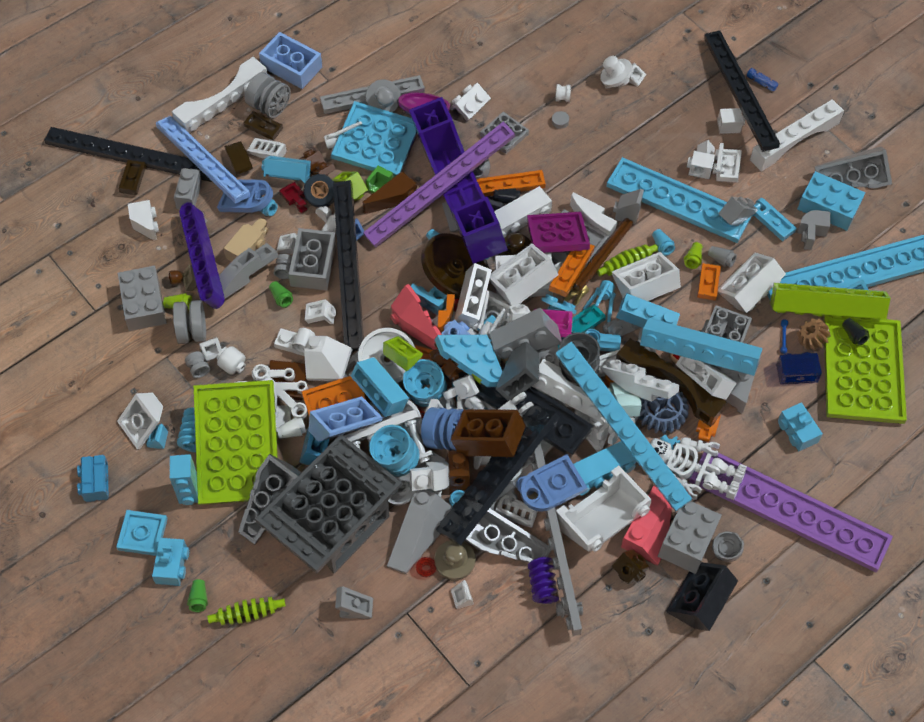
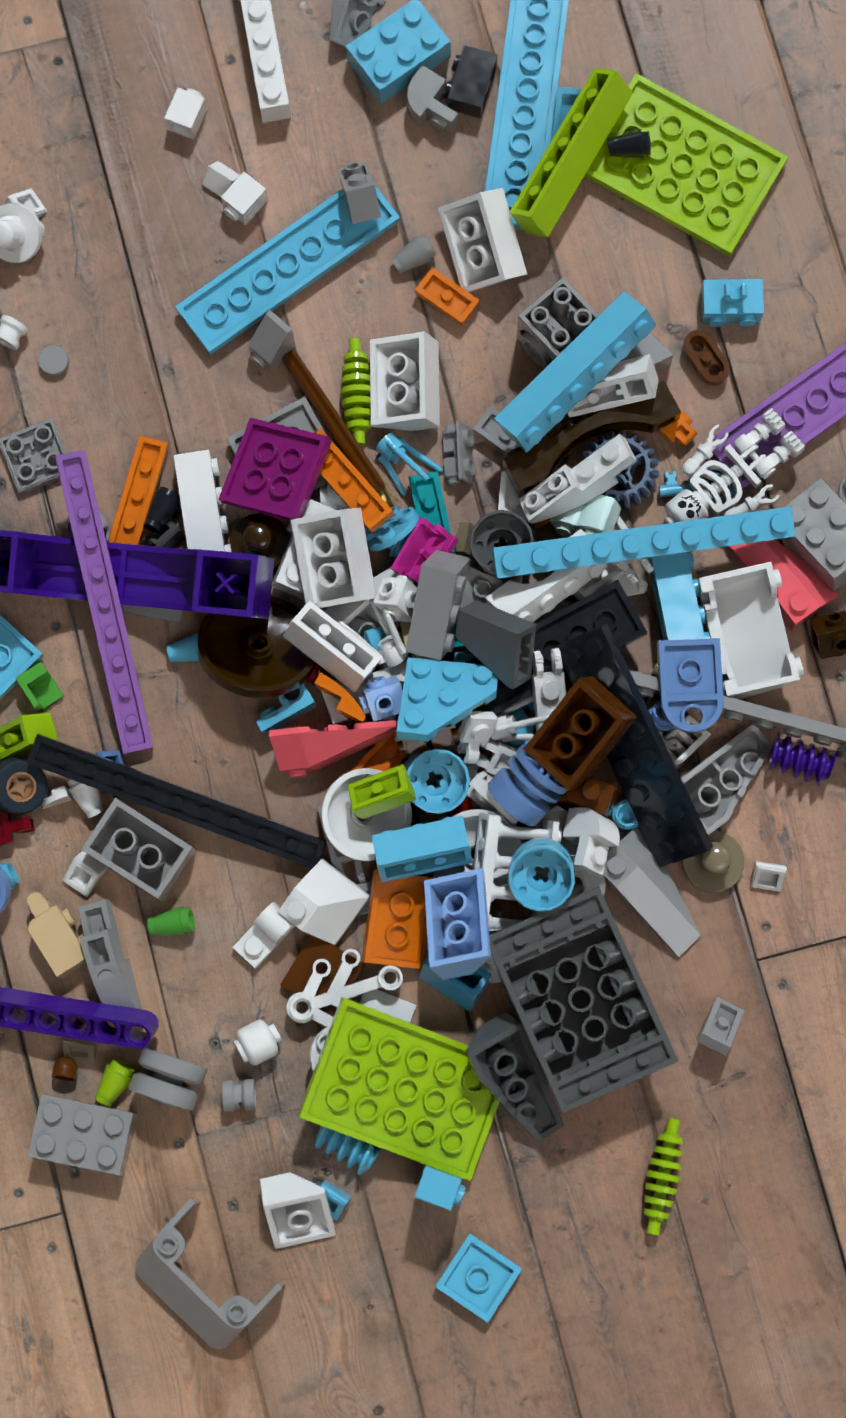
camera: 60 degrees left, 20 degrees up
(65, 405) = (213, 1324): none -> light grey windscreen
(93, 478) = (360, 1316): dark azure brick -> none
(170, 561) = (543, 1254): medium azure brick -> none
(197, 598) = (611, 1235): bright green cone -> none
(210, 349) = (220, 1064): white slope -> none
(283, 266) = (127, 897): light grey wheel -> none
(291, 428) = (412, 1000): white cone -> none
(320, 311) = (232, 878): white bracket -> none
(390, 194) = (73, 676): reddish brown slope -> none
(425, 561) = (715, 902): clear red plate -> none
(593, 214) = (257, 402): white slope -> none
(606, 341) = (476, 496): medium azure piece -> none
(637, 311) = (475, 415): medium azure brick -> none
(664, 243) = (350, 325): medium azure cone -> none
(693, 258) = (395, 294): lime cone -> none
(727, 164) = (262, 159): white bracket -> none
(741, 91) = (146, 68): black plate -> none
(757, 429) = (707, 358): none -> reddish brown plate
(762, 79) = (130, 23): blue axle -> none
(773, 220) = (388, 148): medium azure plate -> none
(784, 323) = (559, 230): blue hinge -> none
(798, 368) = (643, 253): clear blue brick -> none
(813, 334) = (607, 213): medium nougat gear -> none
(838, 242) = (471, 81): none -> black brick

